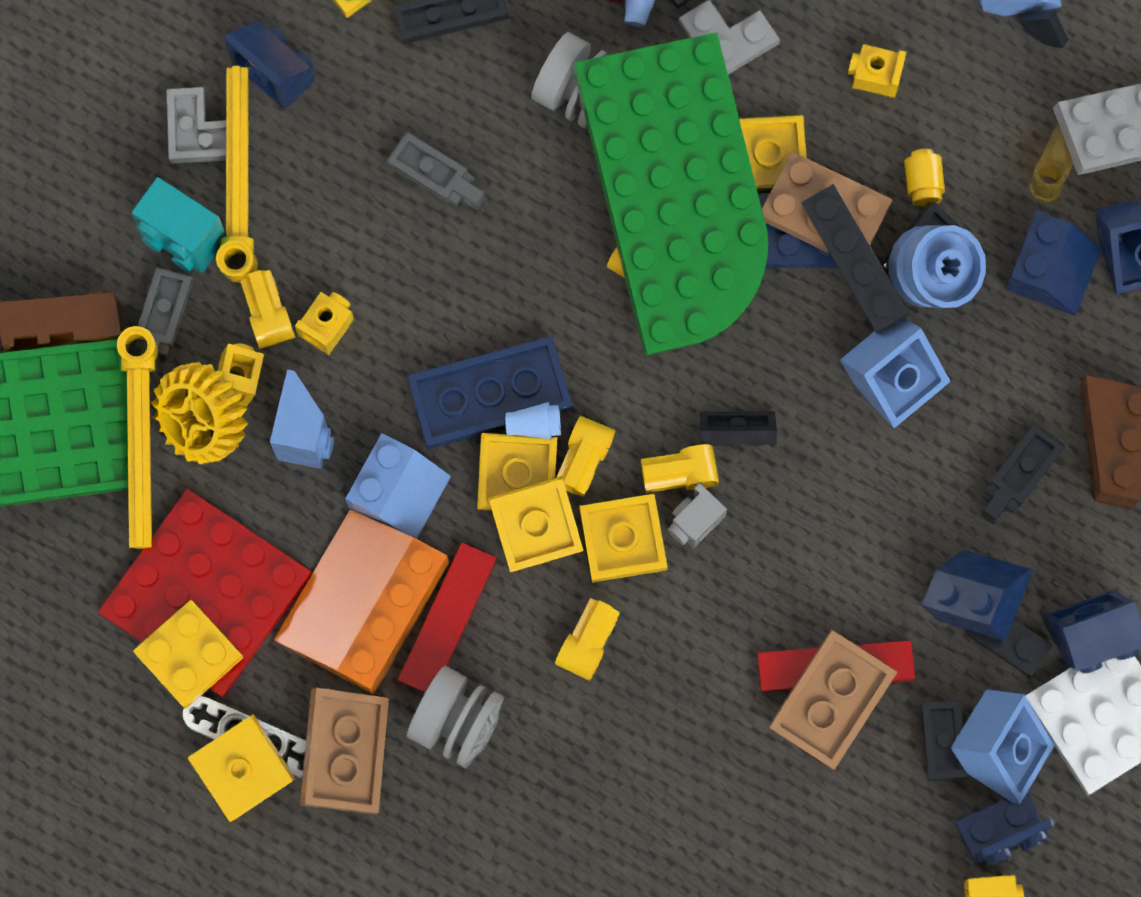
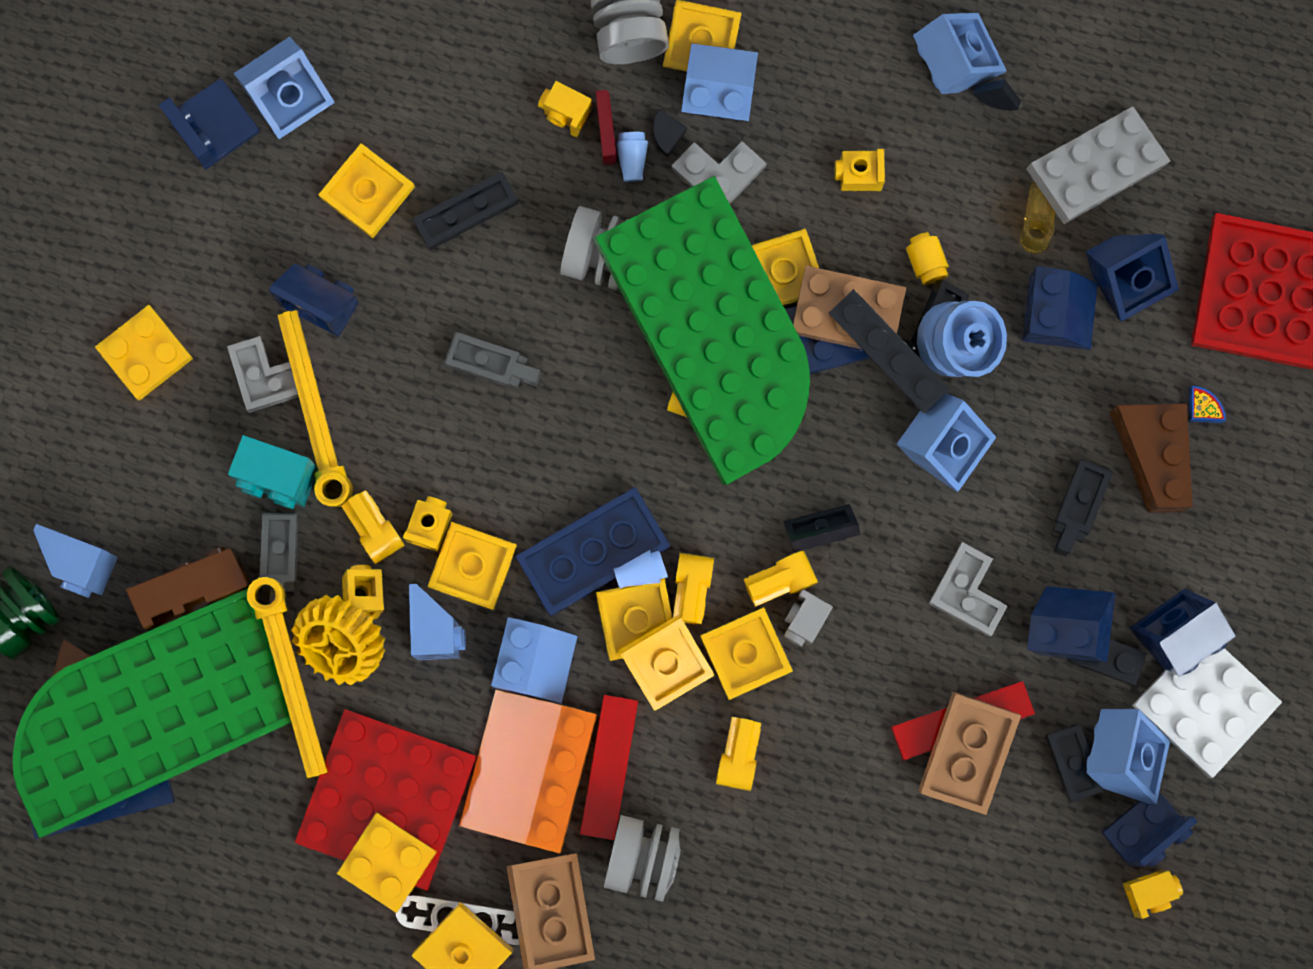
camera: 20 degrees left, 5 degrees up
(79, 76) = (143, 352): none -> yellow plate
(359, 376) = (472, 566): none -> yellow plate
(867, 535) = (959, 594): none -> light grey plate

